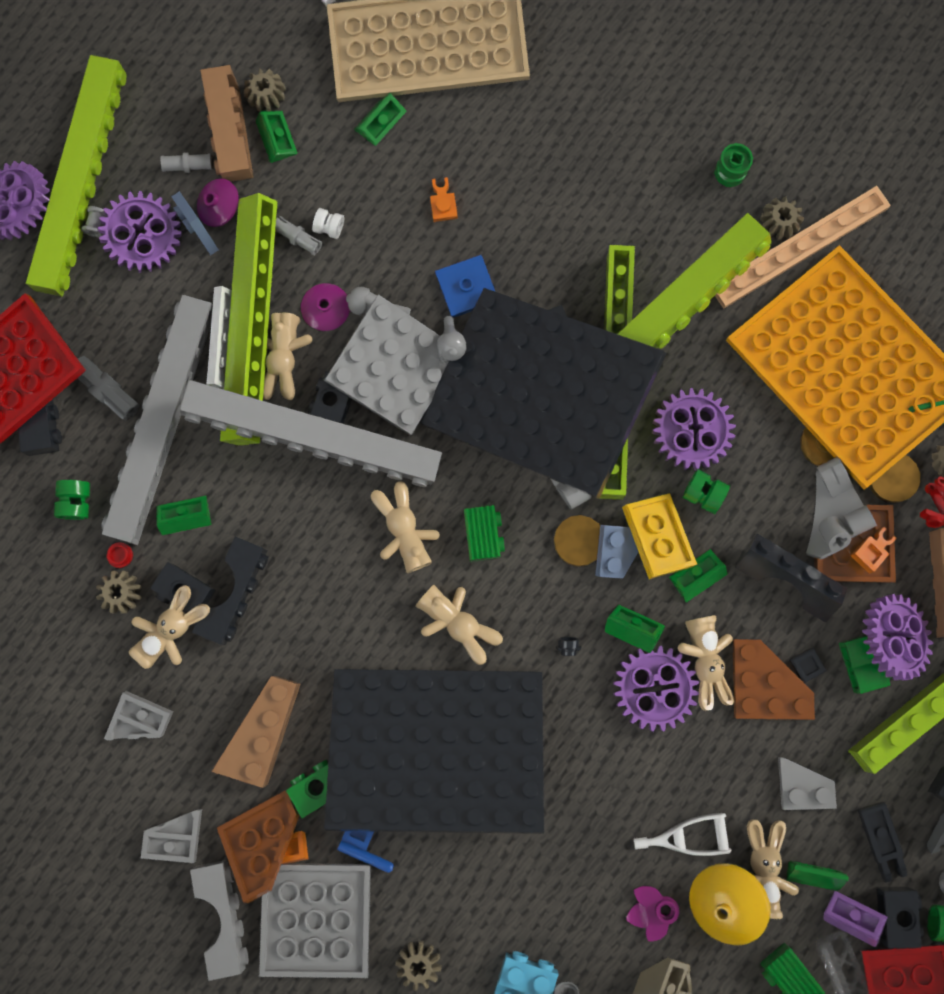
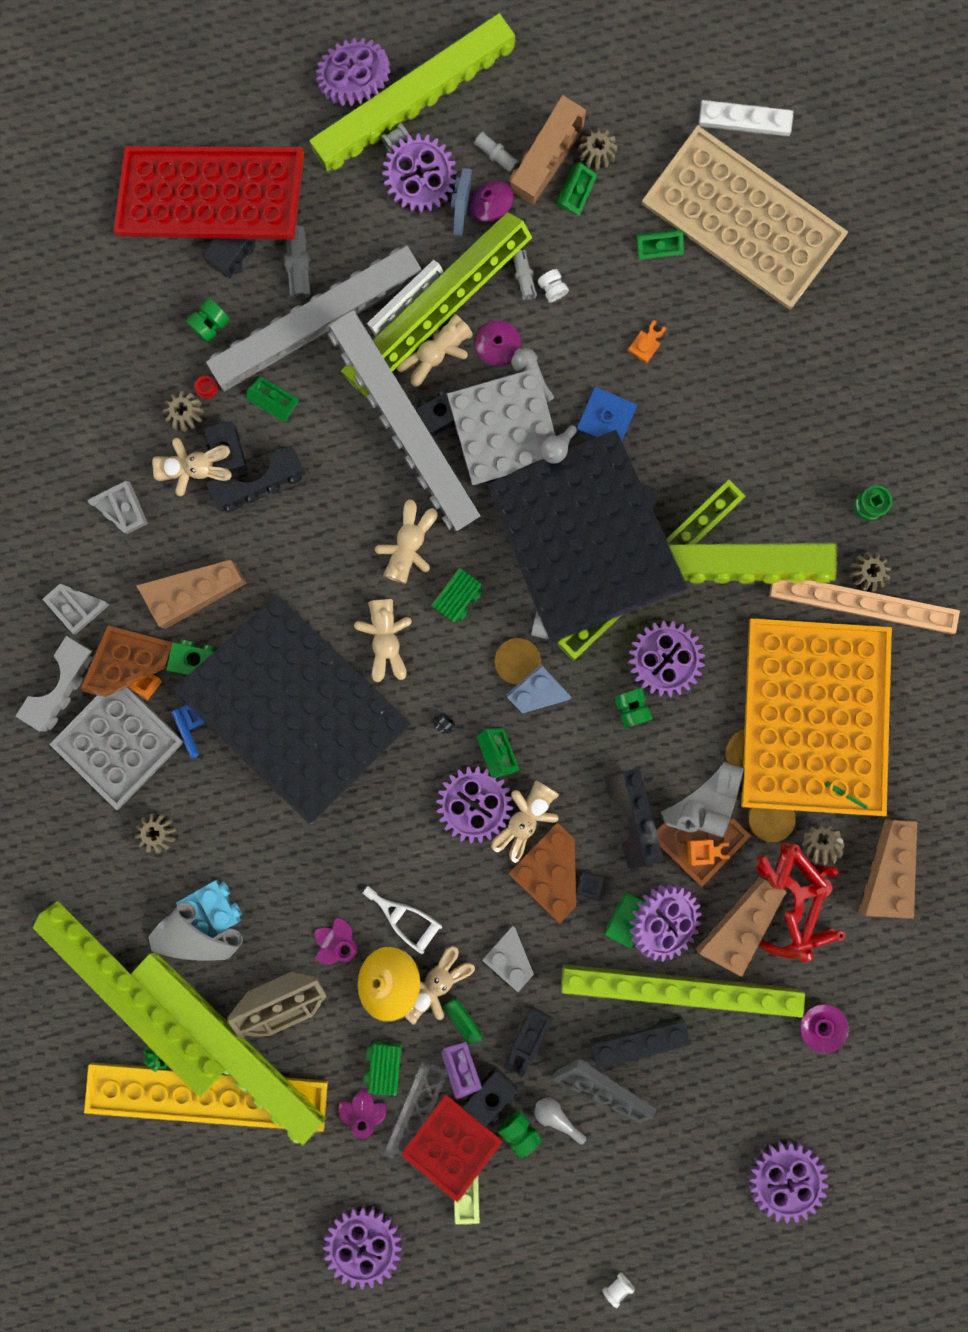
camera: 45 degrees right, 5 degrees up
(659, 536) = (573, 708): yellow tile -> none
(700, 577) = (575, 759): green slope -> none

